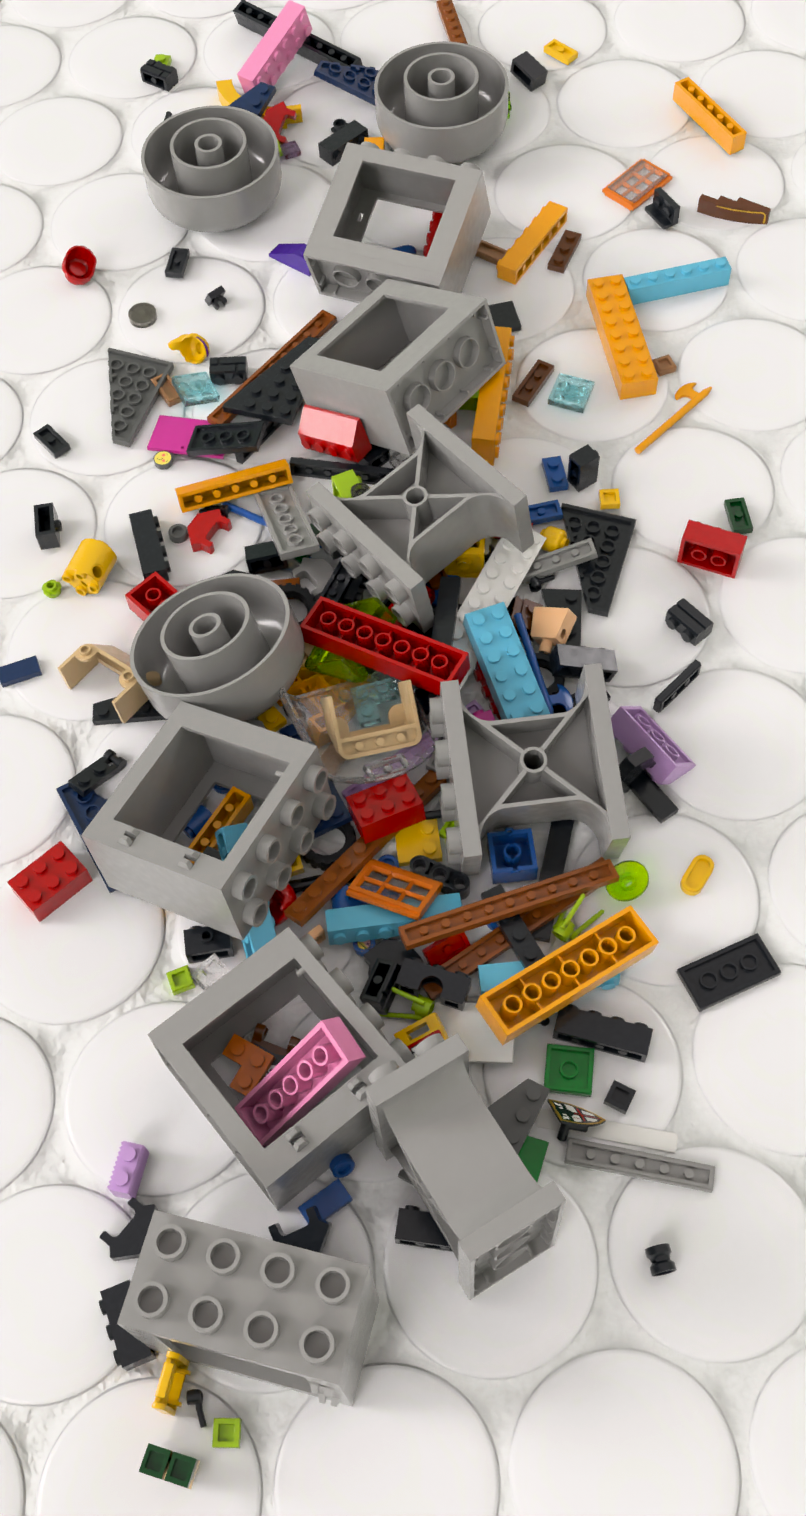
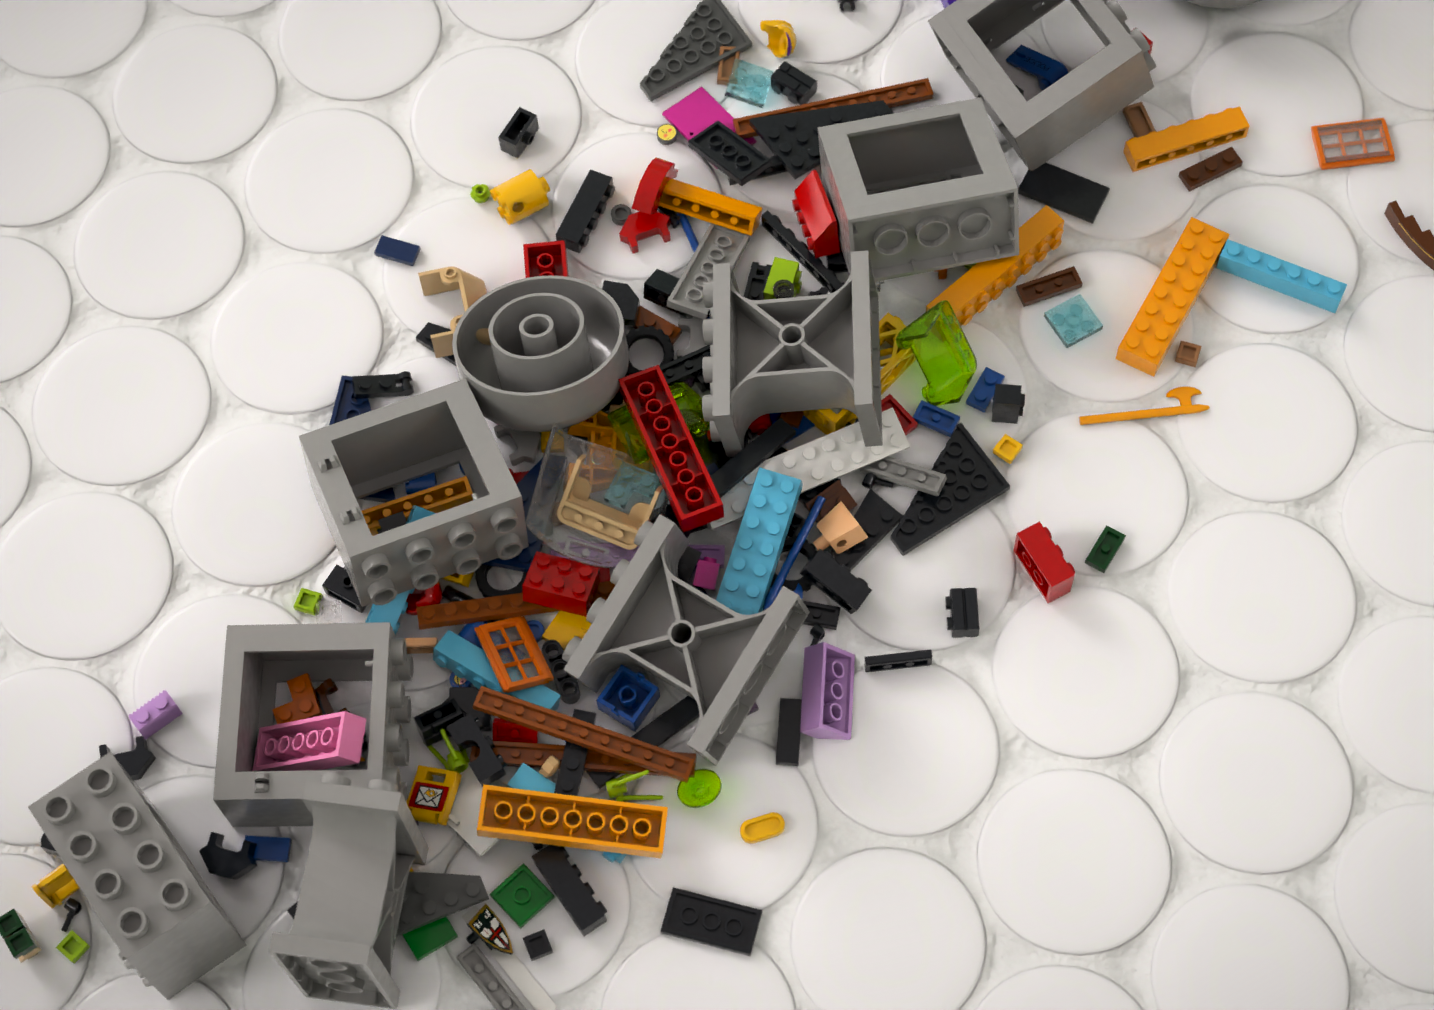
camera: 40 degrees right, 5 degrees up
(50, 881) = (274, 449): red brick -> none
(51, 441) = (590, 50): black plate -> none
(192, 491) = (653, 184): none -> red arch
(342, 1165) = (299, 831): blue tile -> none
(503, 951) = (550, 767): none -> tan tile
(511, 463) = (941, 353): none -> clear neon green windscreen
(555, 538) = (921, 451): yellow head -> none
(634, 765) = (782, 699): black piece -> none
(663, 209) = (1343, 191): black bracket -> none

